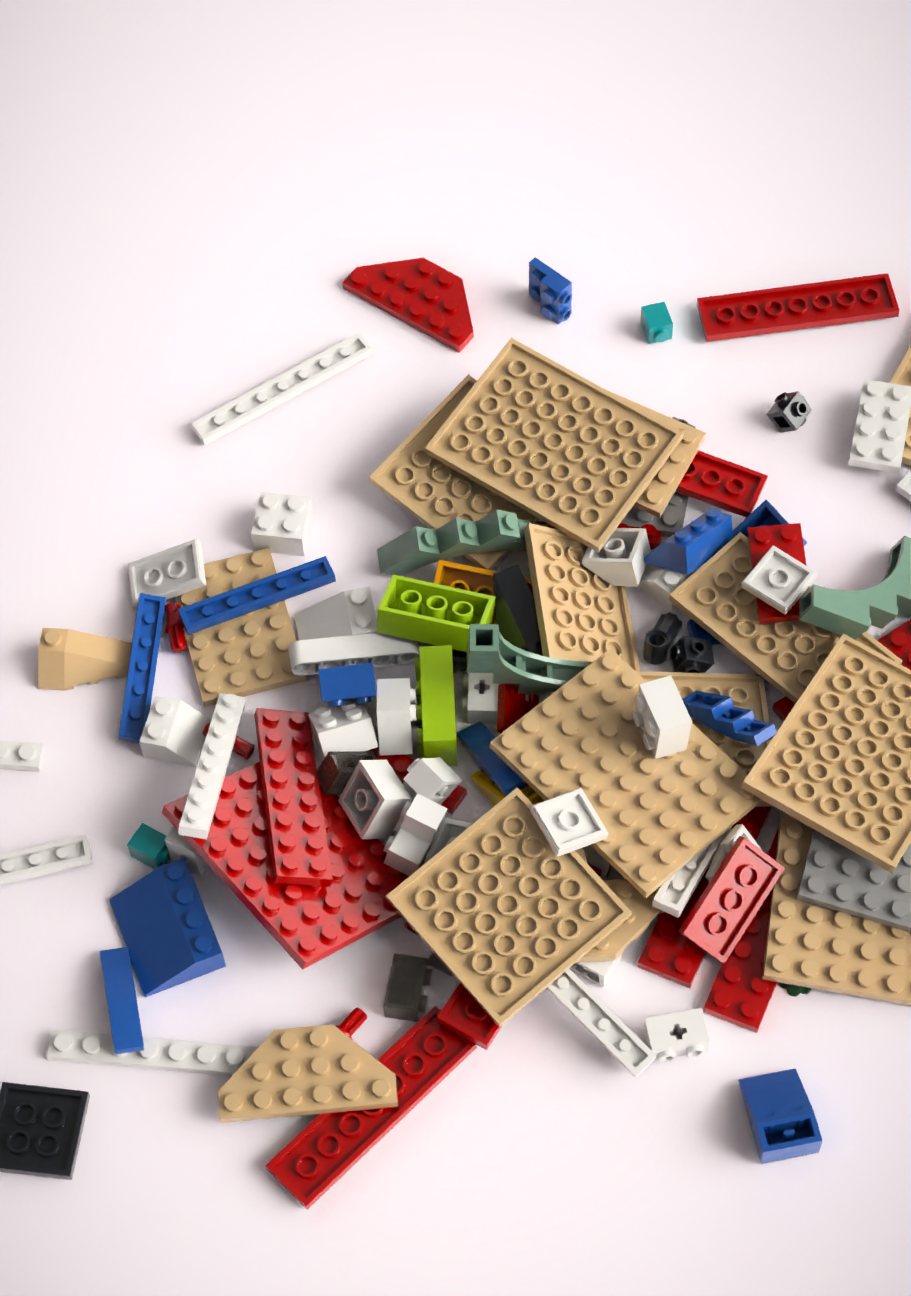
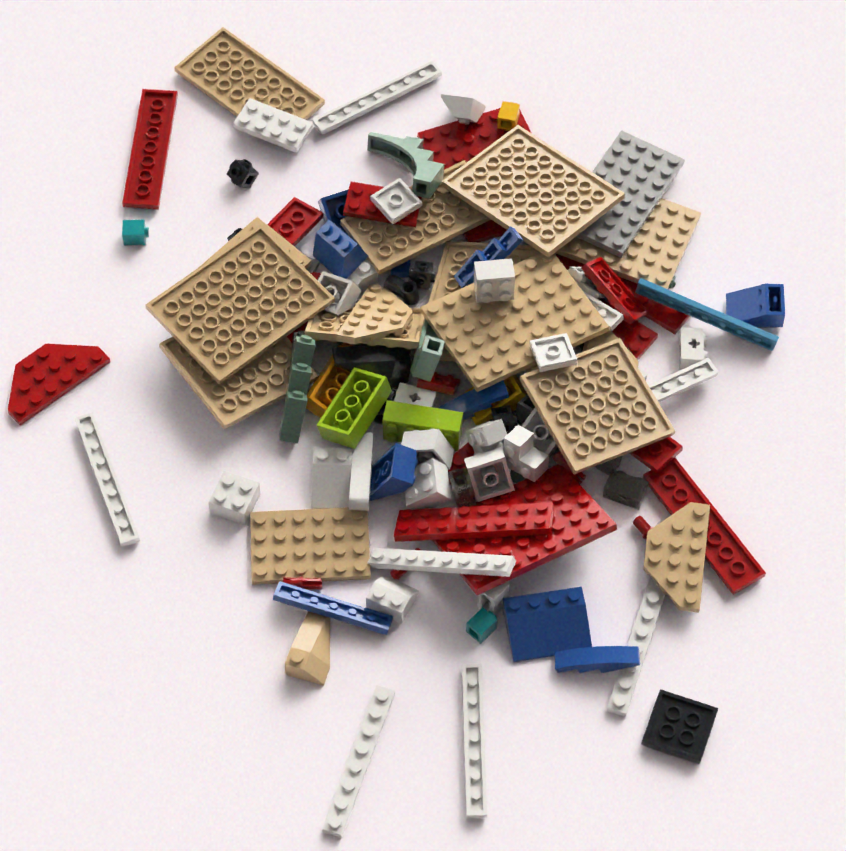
camera: 80 degrees left, 0 degrees up
(168, 572) = (256, 579): white tile -> none
(256, 595) = (297, 521): blue plate -> none
(474, 801) = (505, 414): none -> black brick
(551, 290) = (87, 285): blue plate -> none
(586, 606) = (374, 316): none -> tan plate
(735, 1042) = (706, 314): none -> dark azure tile

